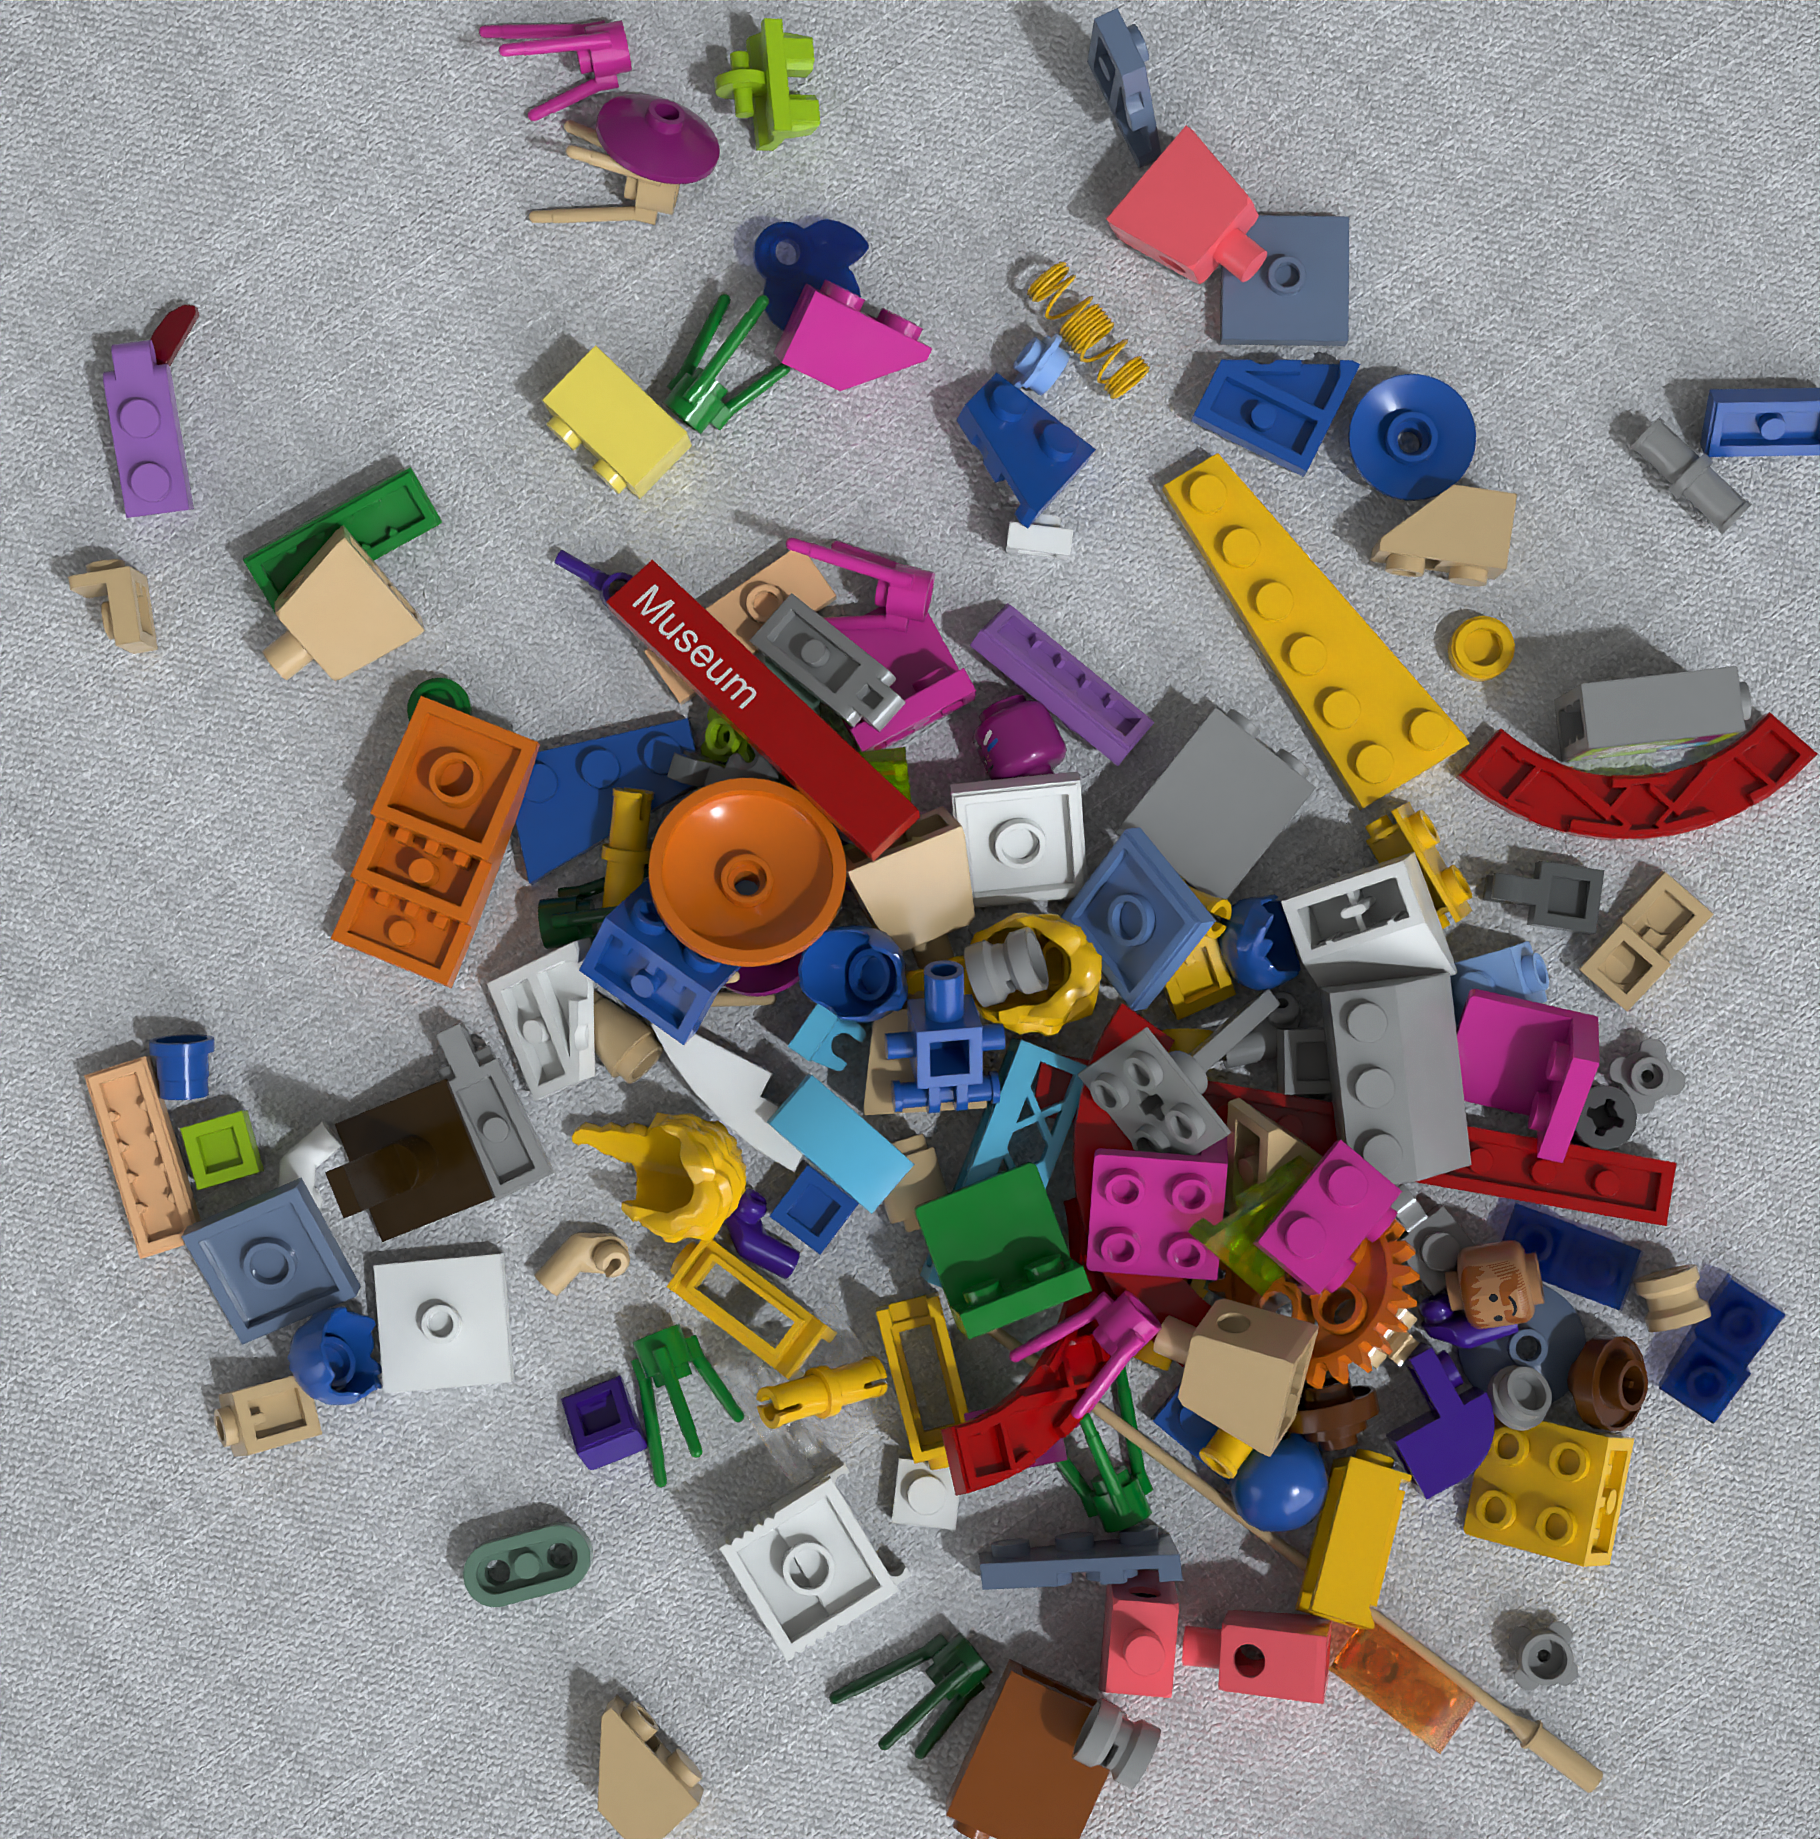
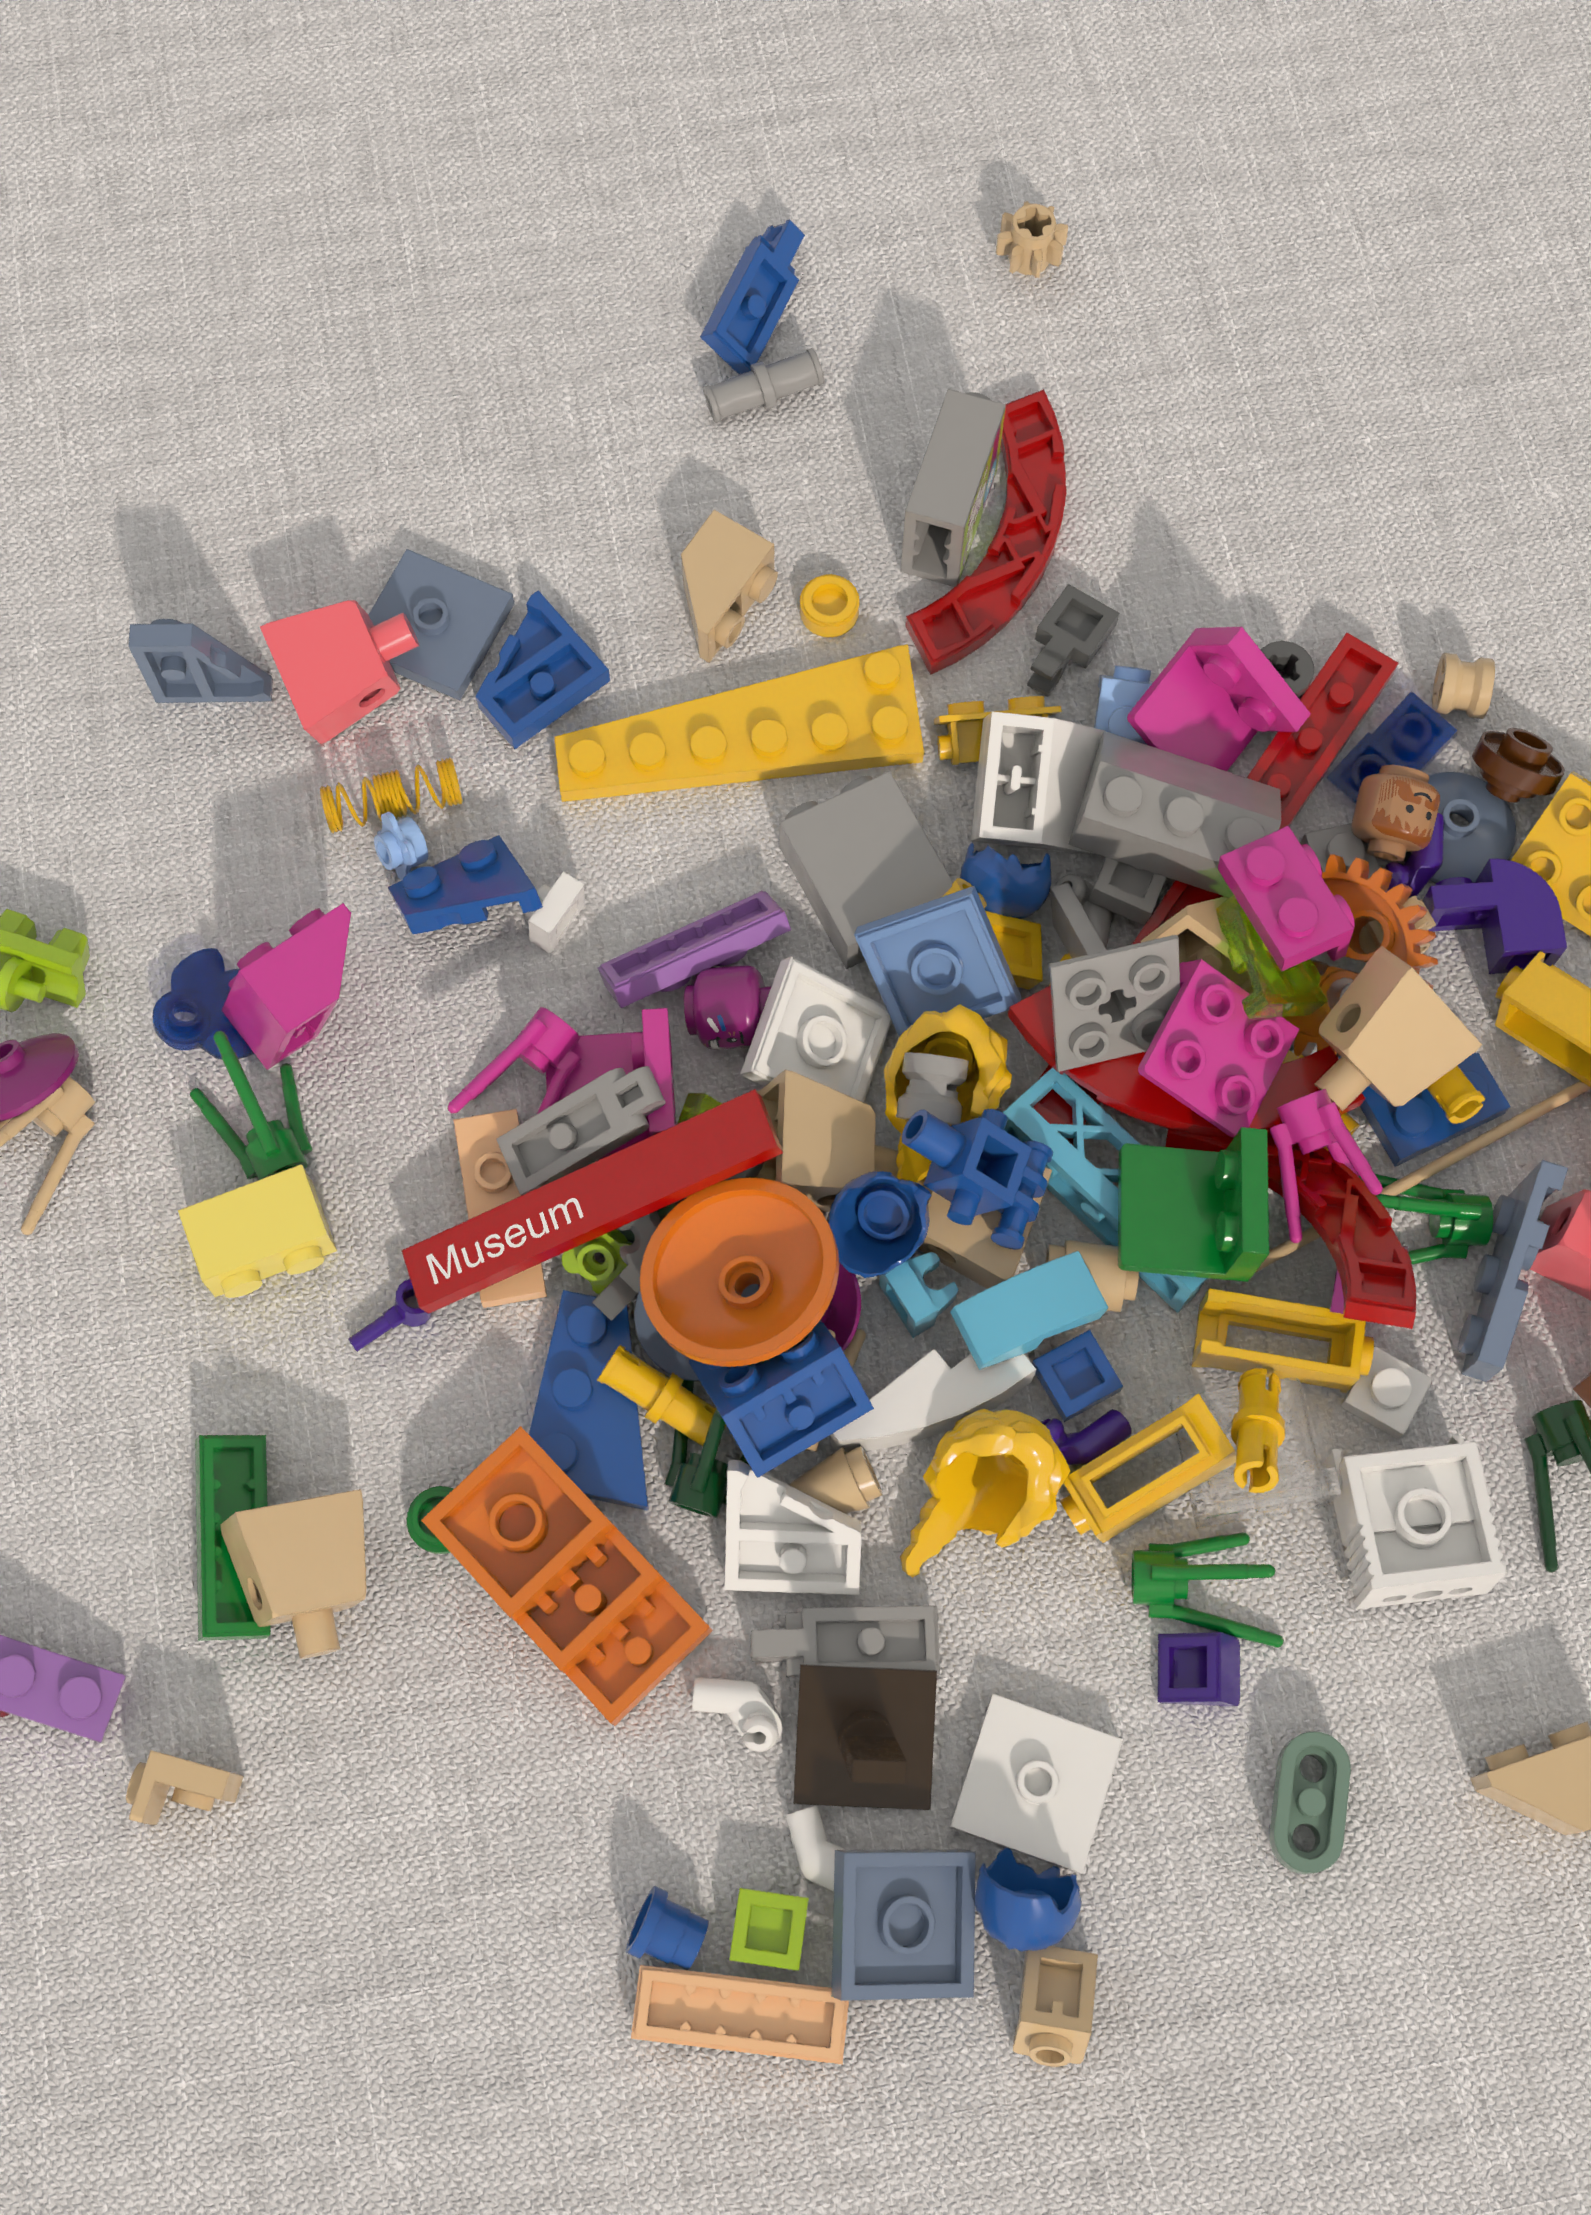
camera: 70 degrees left, 15 degrees down
(398, 1046) = (745, 1706): none -> white arm
(584, 1253) = (1027, 1612): tan arm -> none
(1281, 1489) = (1508, 1069): blue hair -> none
(1334, 1413) = (1462, 987): reddish brown plate -> none
(1429, 412) = (615, 556): blue dish -> none
(1519, 1397) = (1503, 836): light grey plate -> none
(1645, 940) = (1140, 584): tan slope -> none
(1649, 1057) = (1269, 615): light grey plate -> none
(1717, 1350) = (1526, 680): clear blue slope -> none

